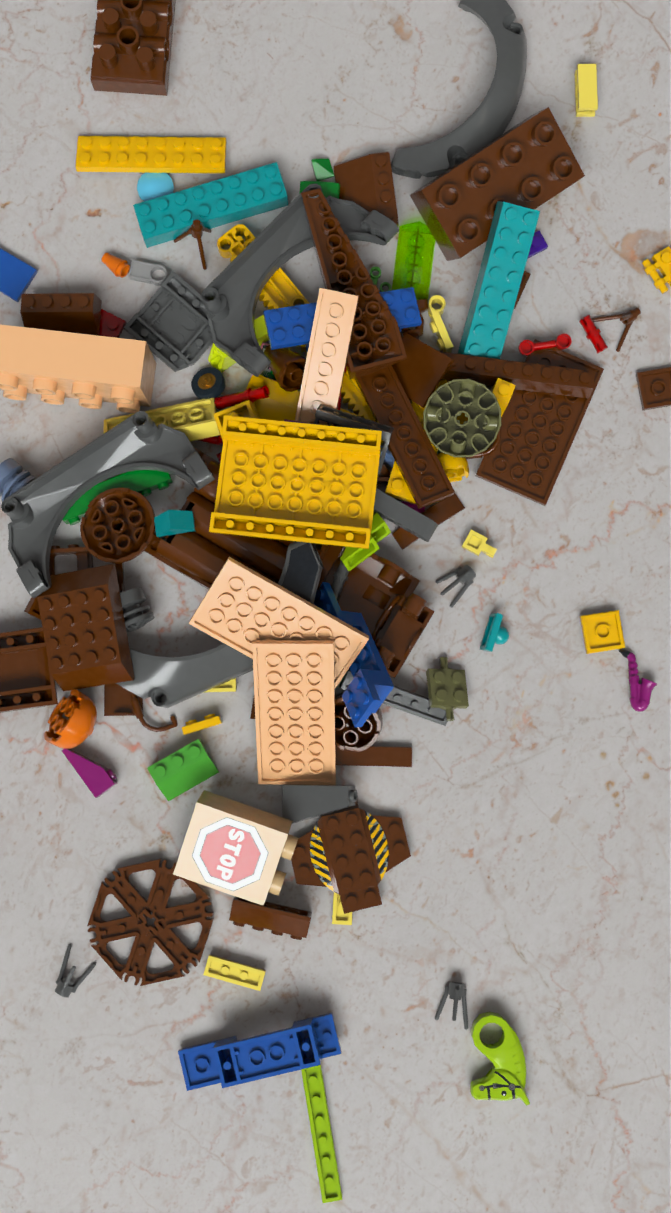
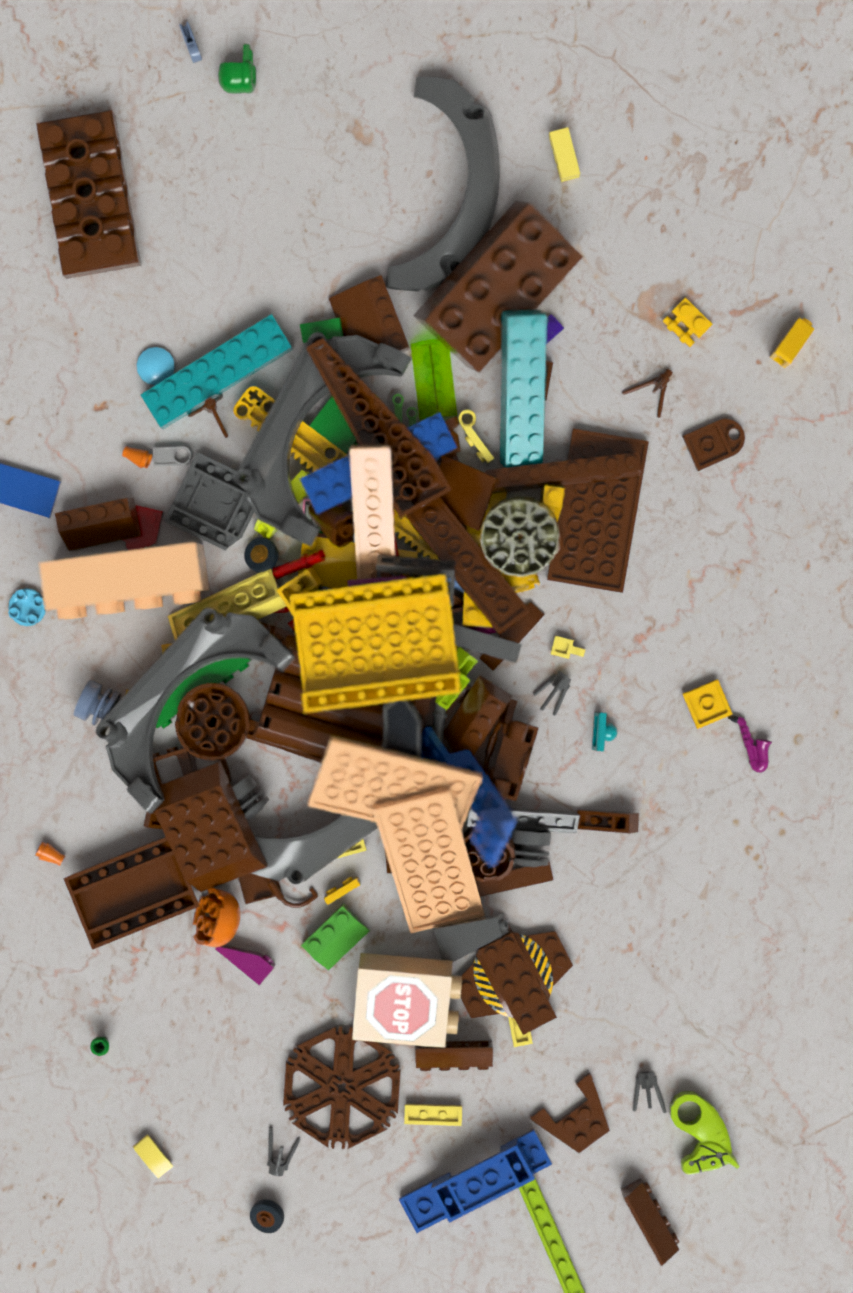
camera: 10 degrees left, 5 degrees up
(41, 1035) = (267, 1216): none -> black wheel
(151, 154) = (142, 333): yellow plate -> none
(174, 522) = (267, 708): teal slope -> none
(307, 277) = (333, 427): none -> green slope
(322, 169) = (318, 304): green slope -> none
(377, 583) = (476, 716): none -> reddish brown slope
(380, 1020) = (582, 1124): none -> reddish brown wing
(397, 726) = (529, 847): none -> dark grey wheel
(426, 1138) = (650, 1220): none -> reddish brown slope
(447, 688) = (569, 797): olive plate -> none
(481, 722) = (608, 821): none -> reddish brown slope
(561, 342) = (599, 425): red bar -> none
(593, 334) = (630, 407): red pin -> none

